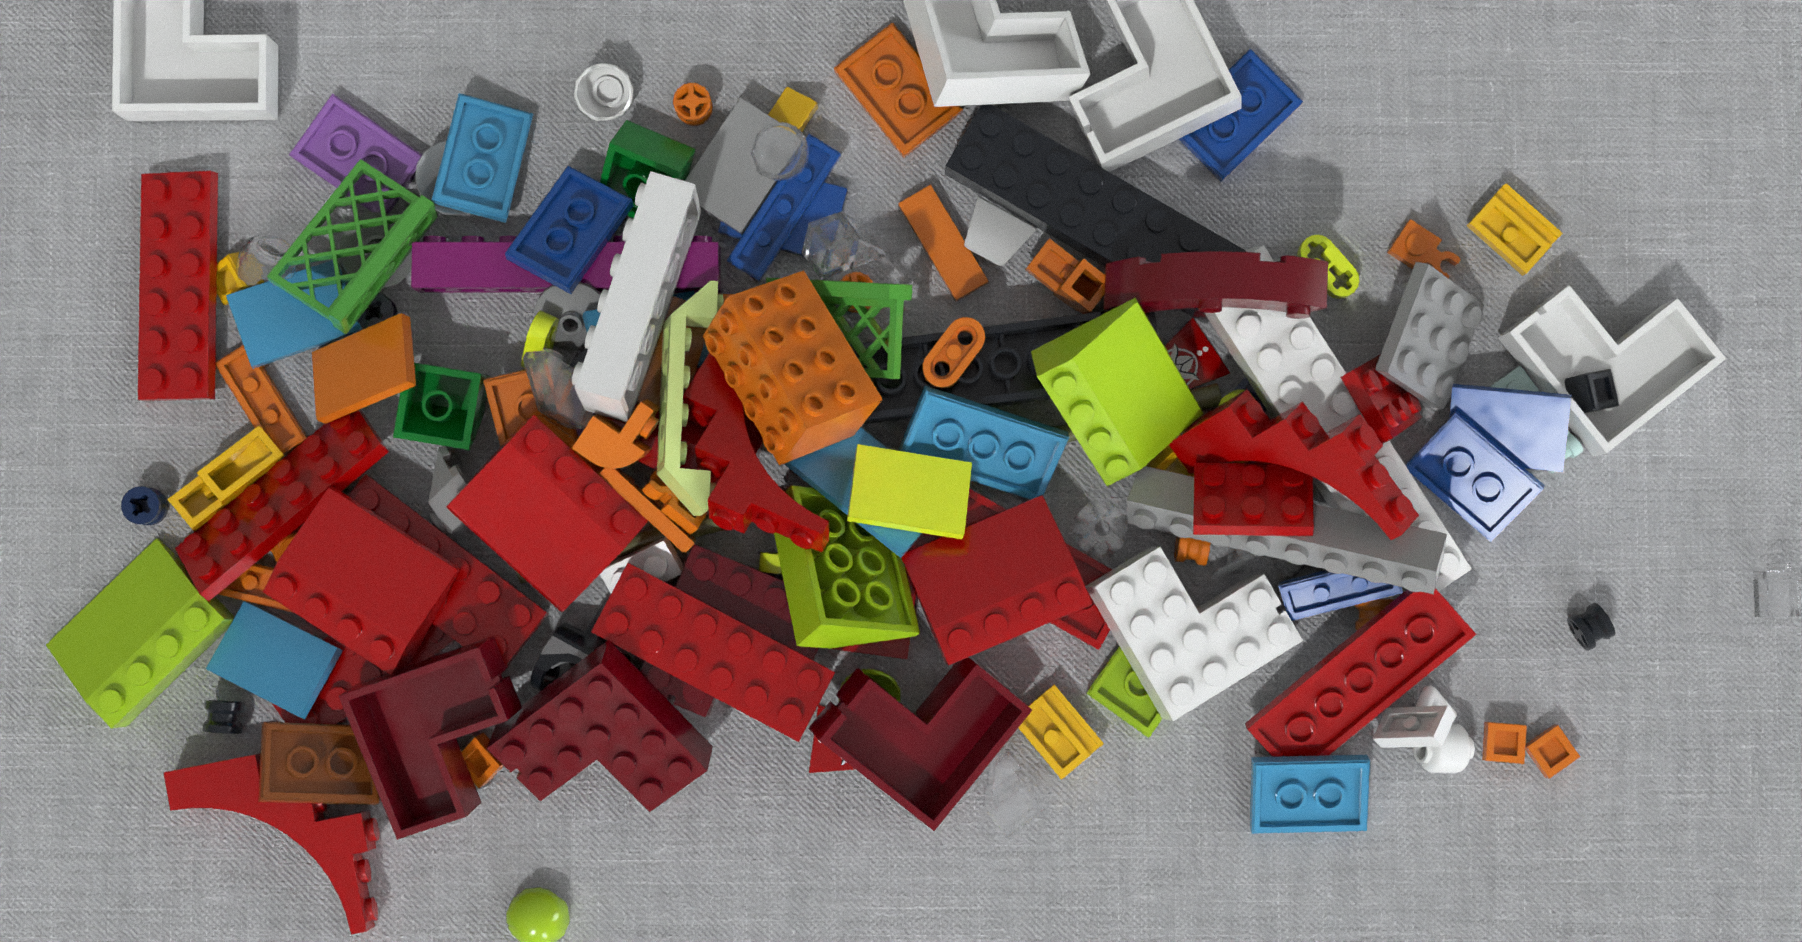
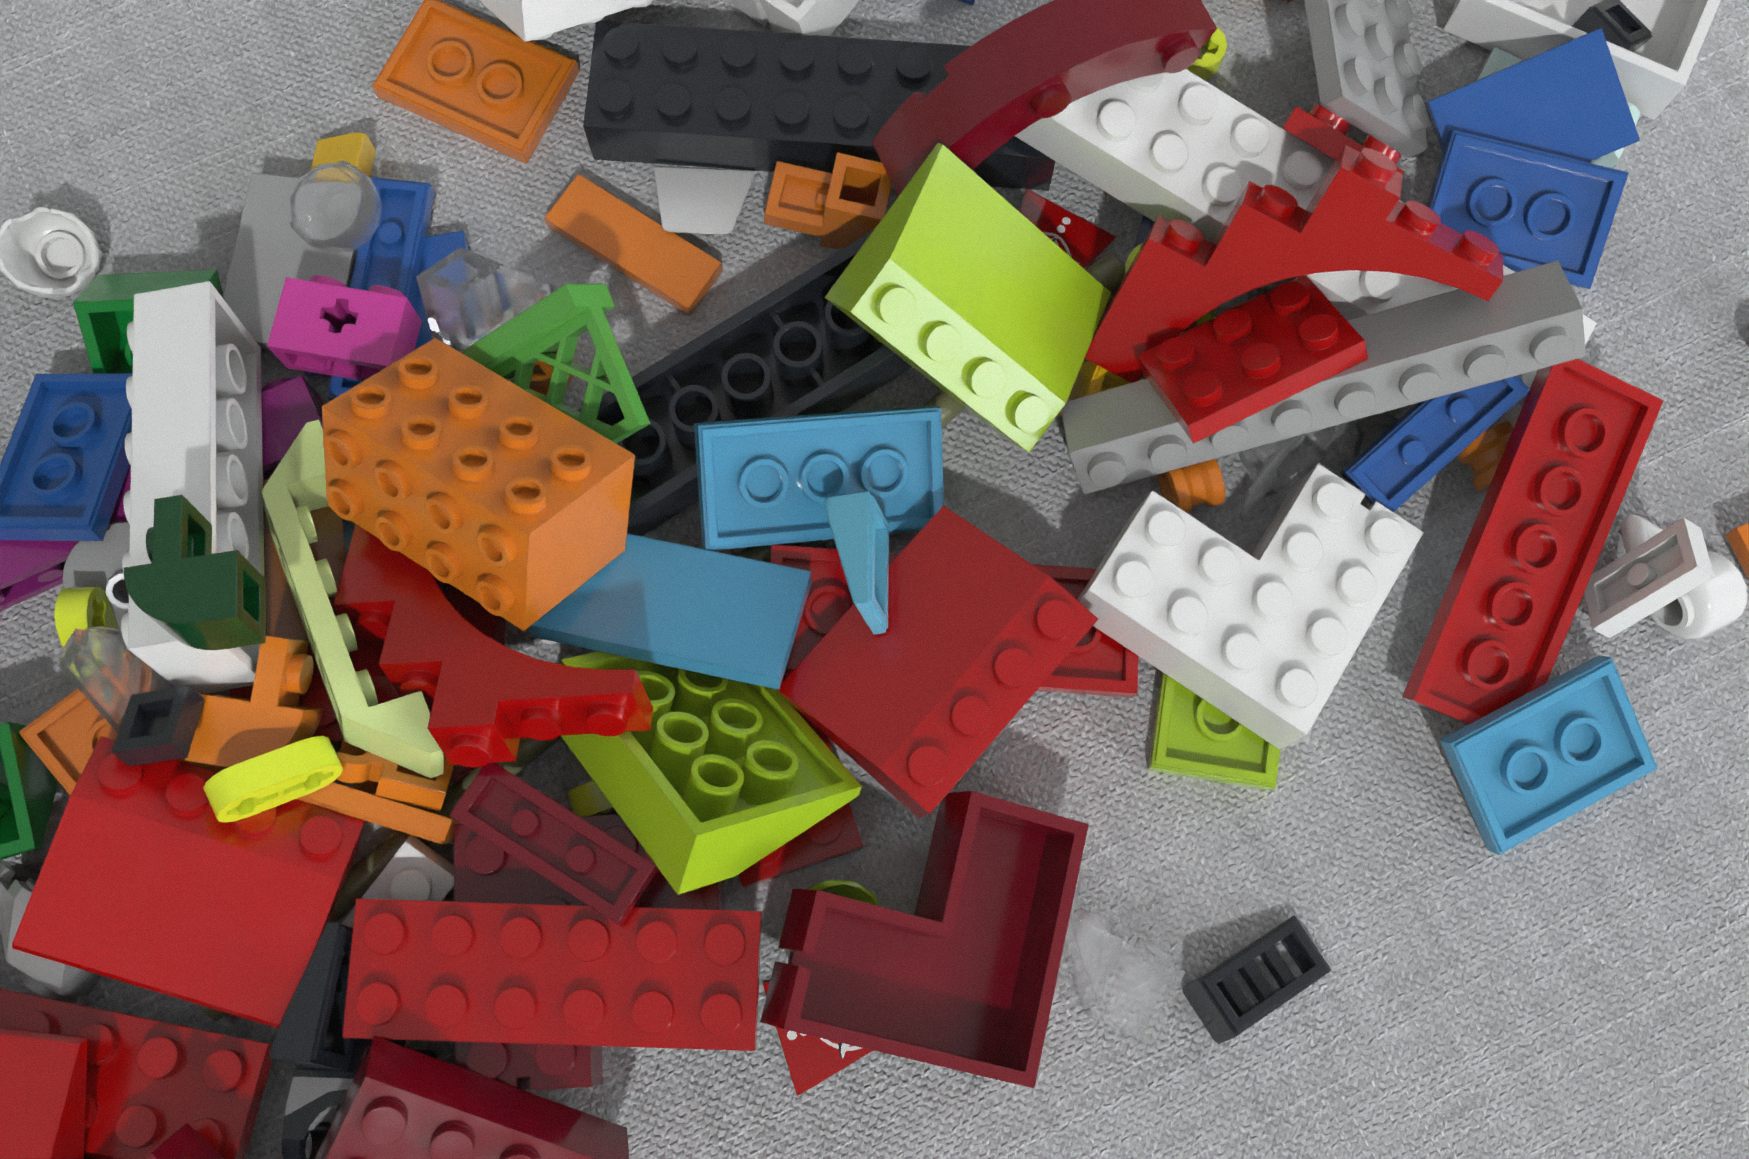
camera: 25 degrees left, 10 degrees down
(568, 426) = (158, 726): none -> black plate
(582, 612) = (315, 1017): none -> black slope
(614, 482) = (272, 779): none -> neon yellow beam
(621, 383) = (197, 594): none -> dark green brick
(692, 96) = (176, 212): orange wheel -> none
(732, 227) = (316, 310): none -> dark pink brick
(744, 585) = (554, 842): none -> dark red plate
(909, 491) = (744, 586): neon yellow tile -> none
(953, 353) = (711, 361): orange plate -> none
(985, 497) = (863, 549): none -> medium azure slope
(1052, 837) = (1223, 1003): none -> black slope
(1059, 732) = (1143, 844): yellow plate -> none
(1089, 540) = (1048, 540): clear brick -> none

